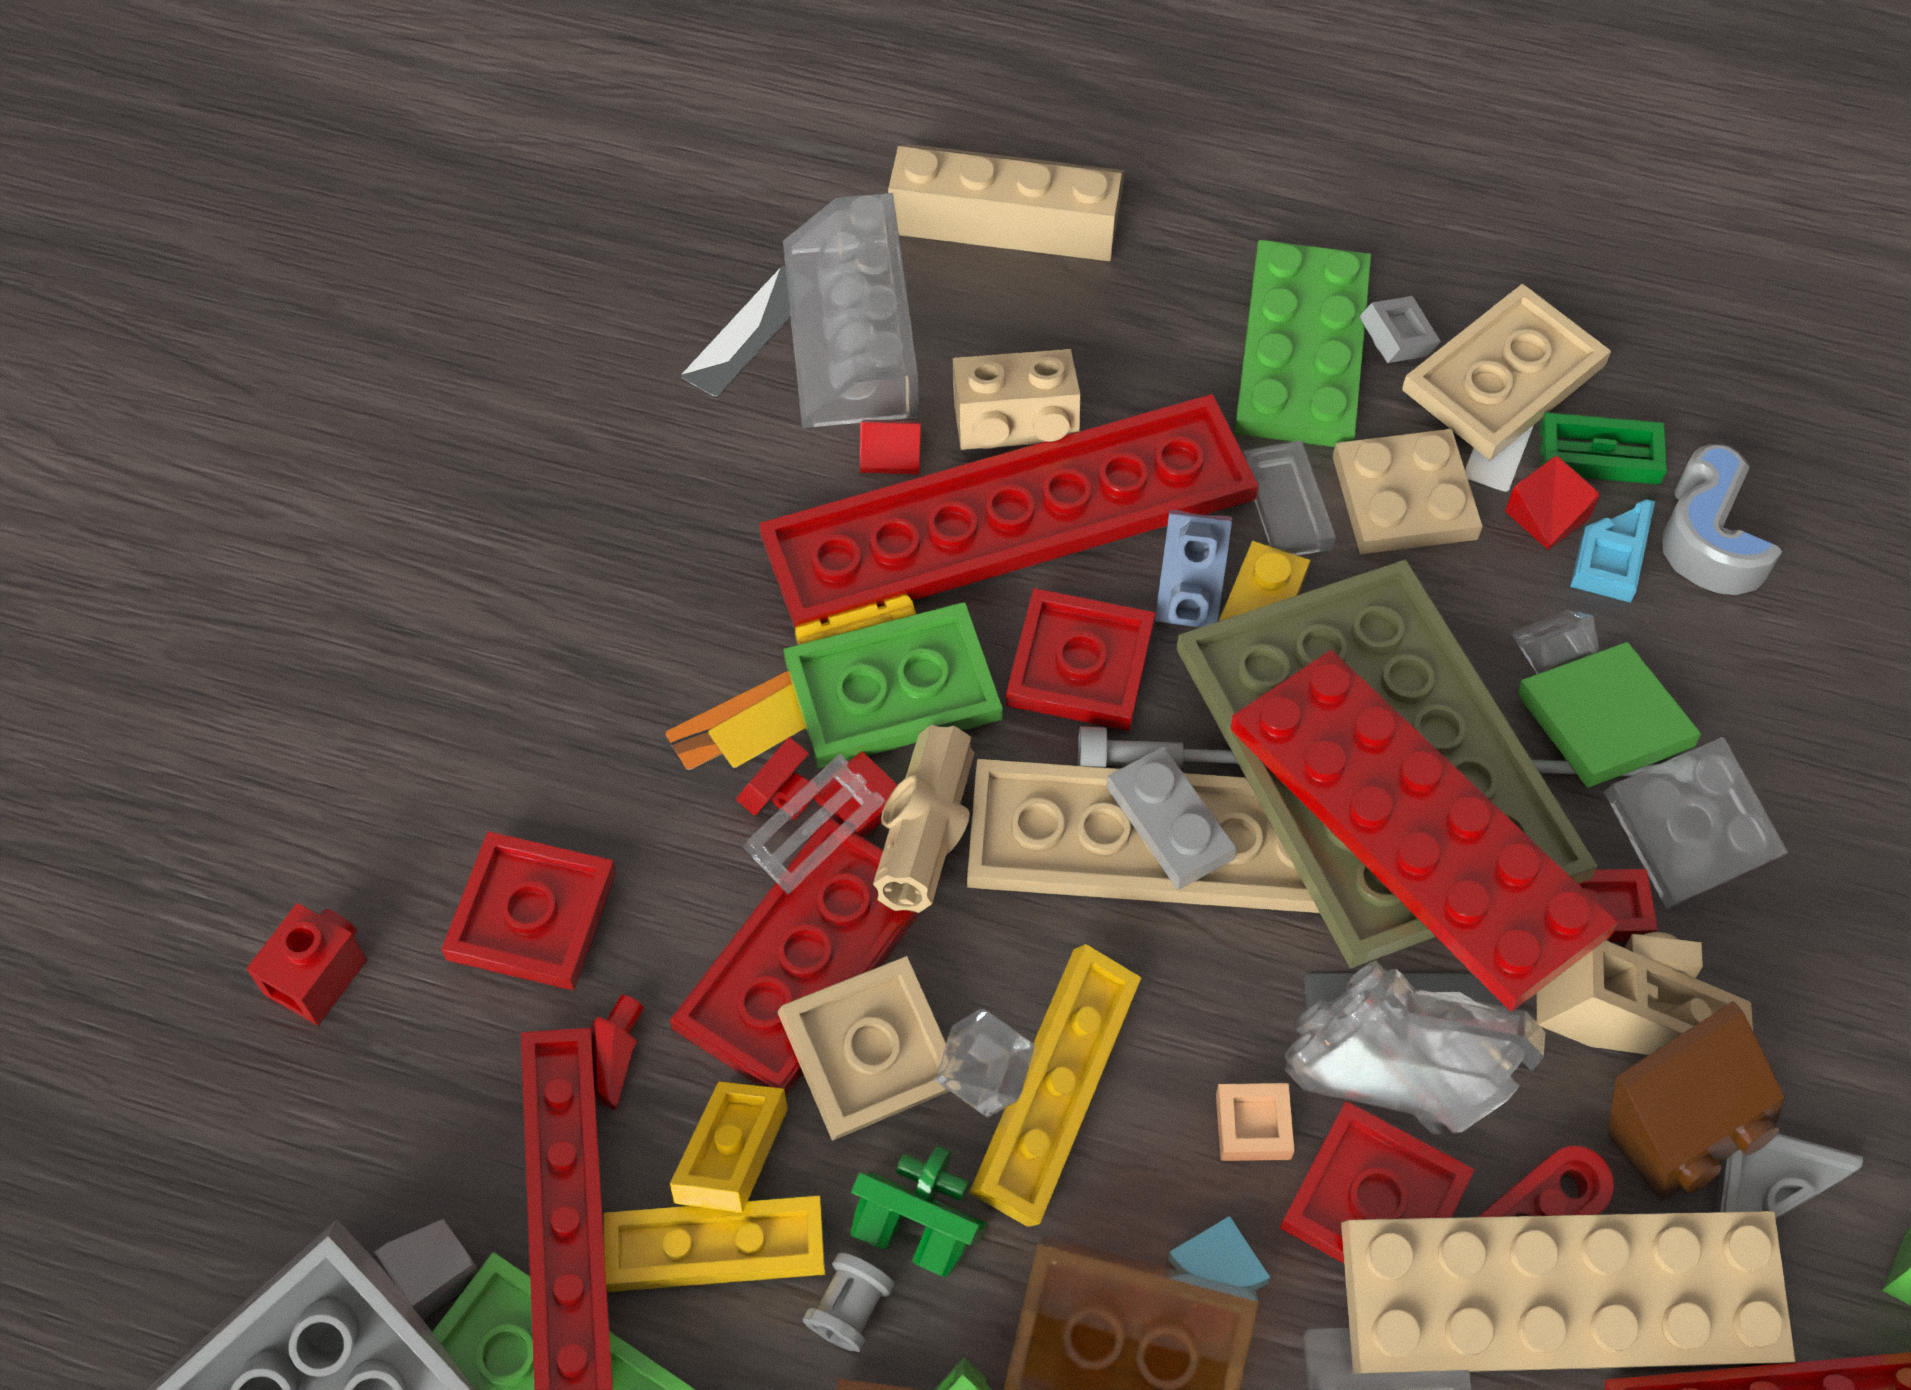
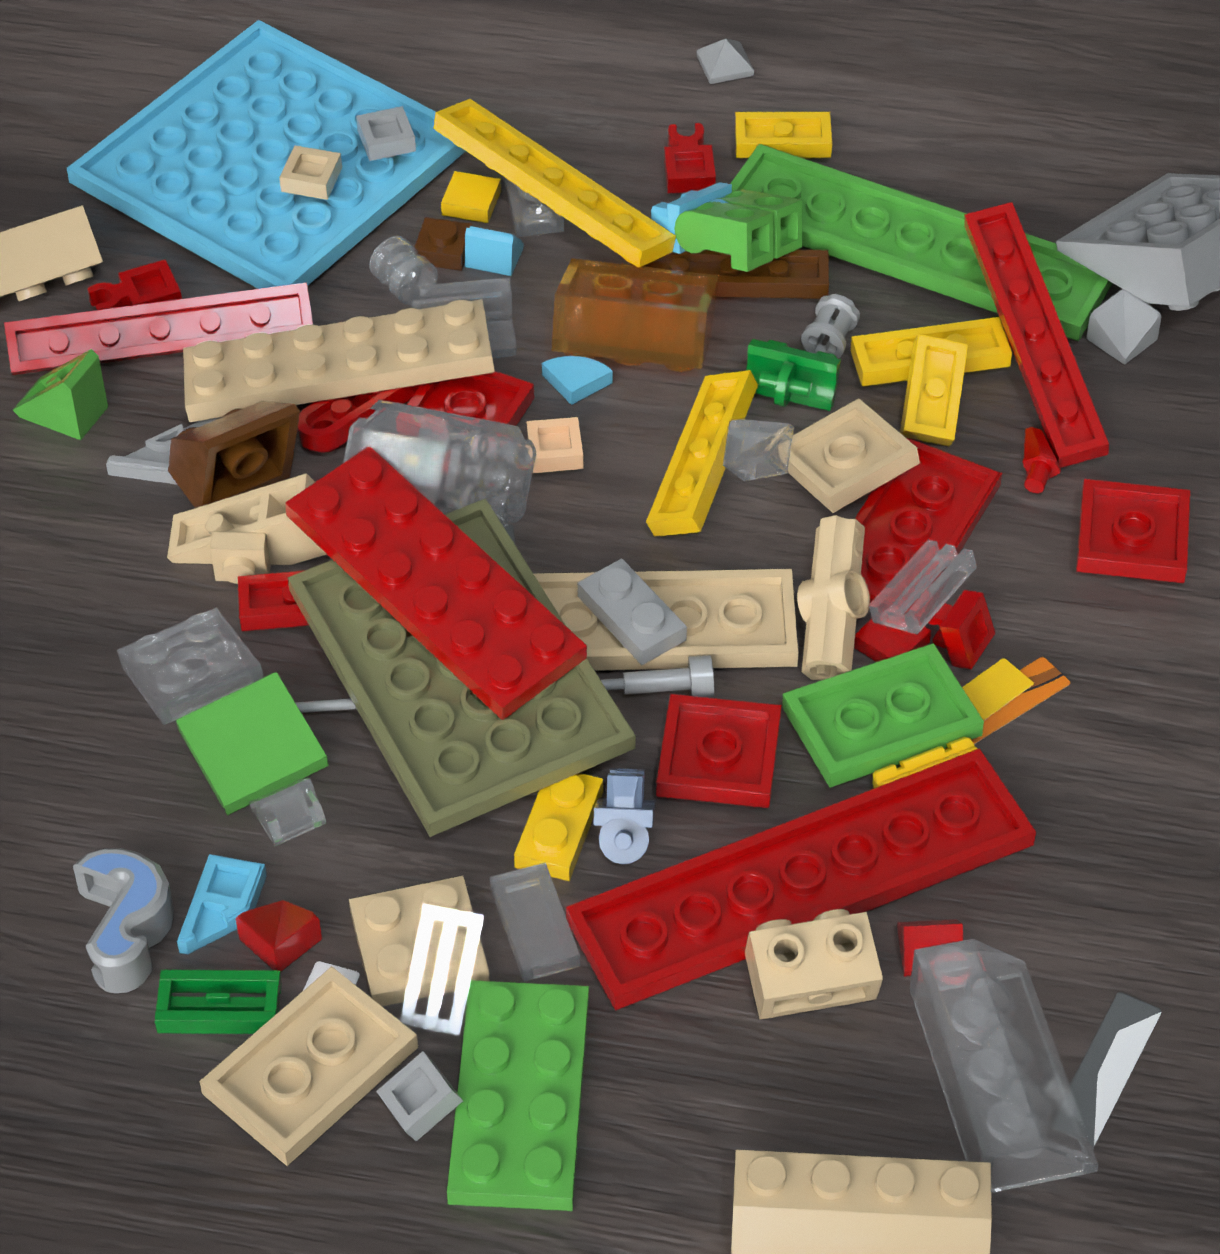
camera: 175 degrees right, 10 degrees down
(1383, 441) = (430, 1020): none -> clear tile

